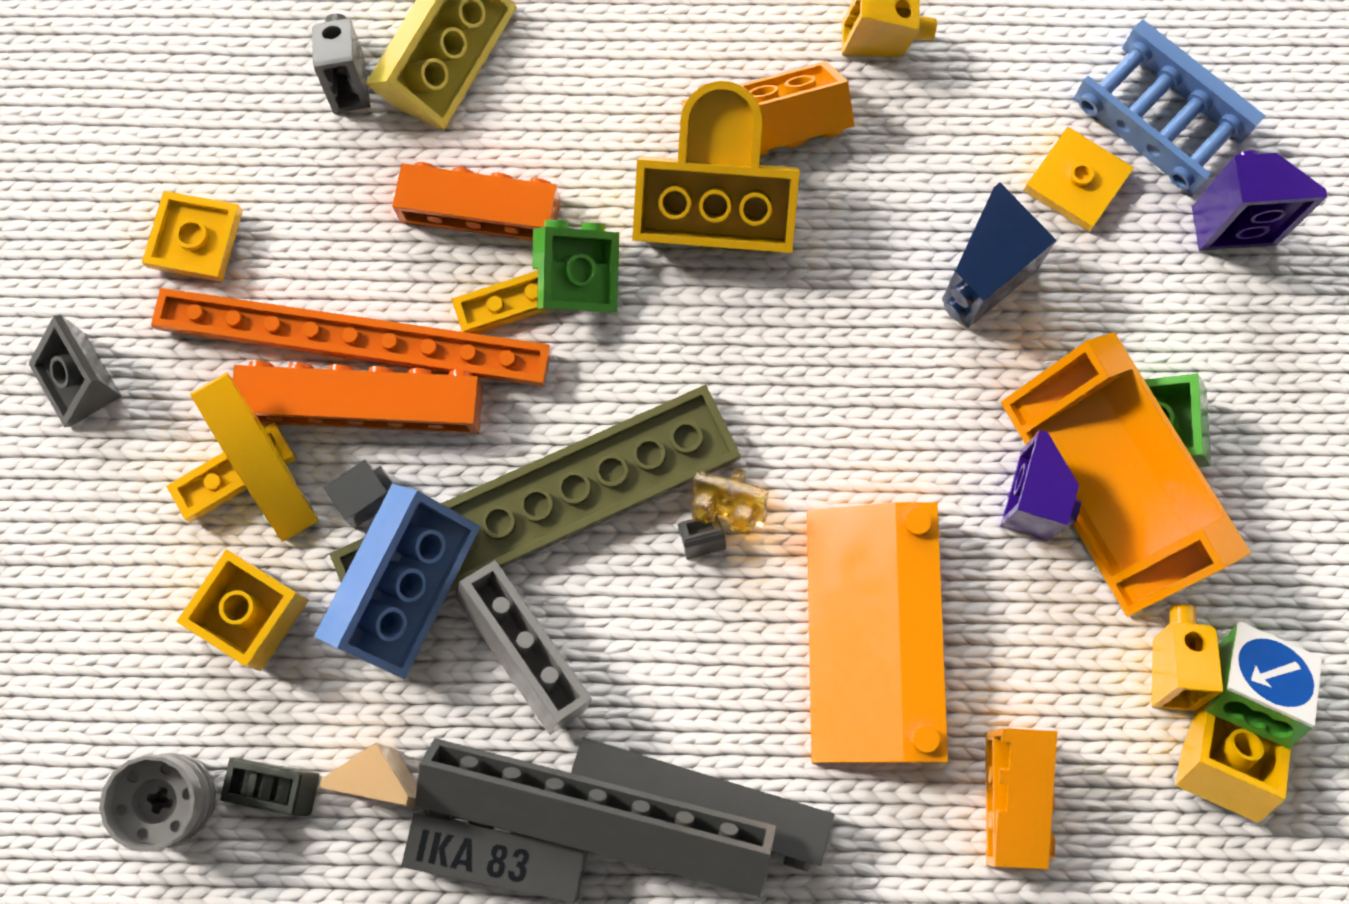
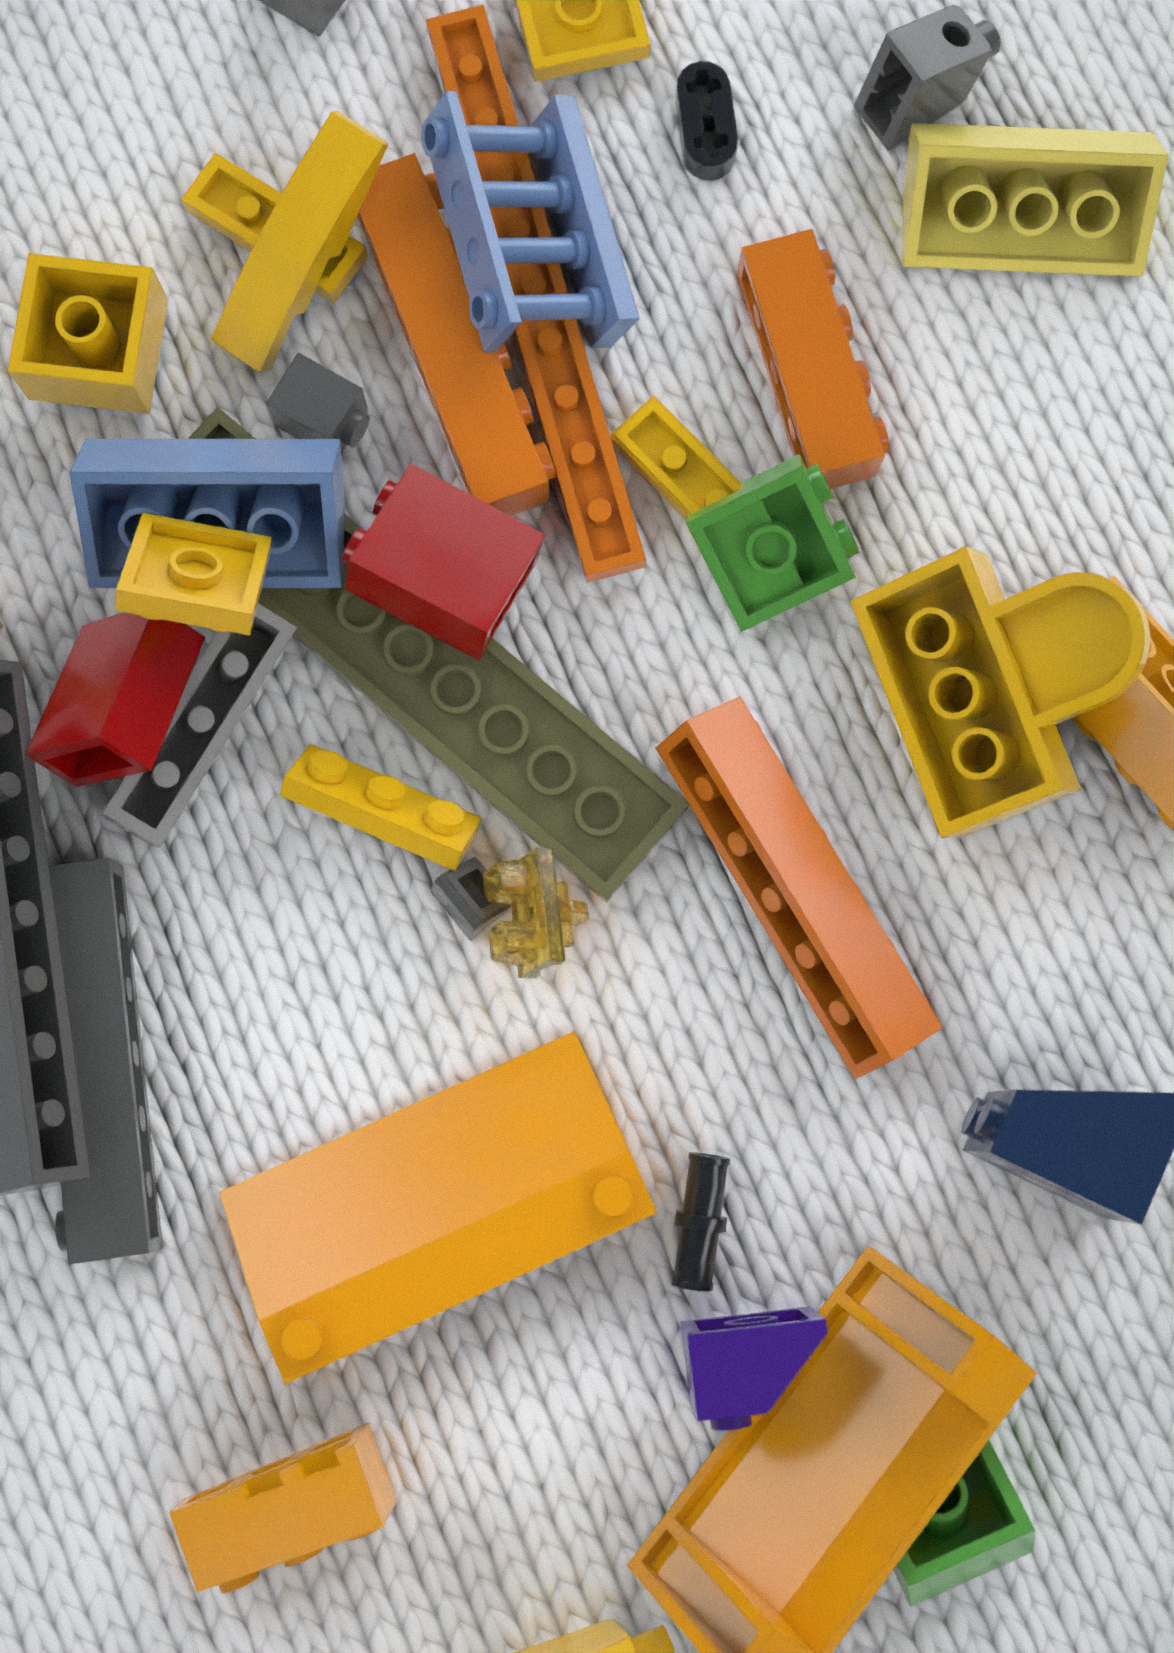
camera: 60 degrees right, 5 degrees up
(301, 188) = (718, 119): none -> black beam
(316, 290) = (569, 192): none -> medium blue fence
(438, 599) = (193, 574): none -> yellow plate
(485, 686) = (115, 698): none -> red brick
(495, 458) = (441, 560): none -> red brick
(624, 562) = (381, 806): none -> yellow plate
(782, 345) = (798, 887): none -> orange brick
(949, 486) = (700, 1221): none -> black pin

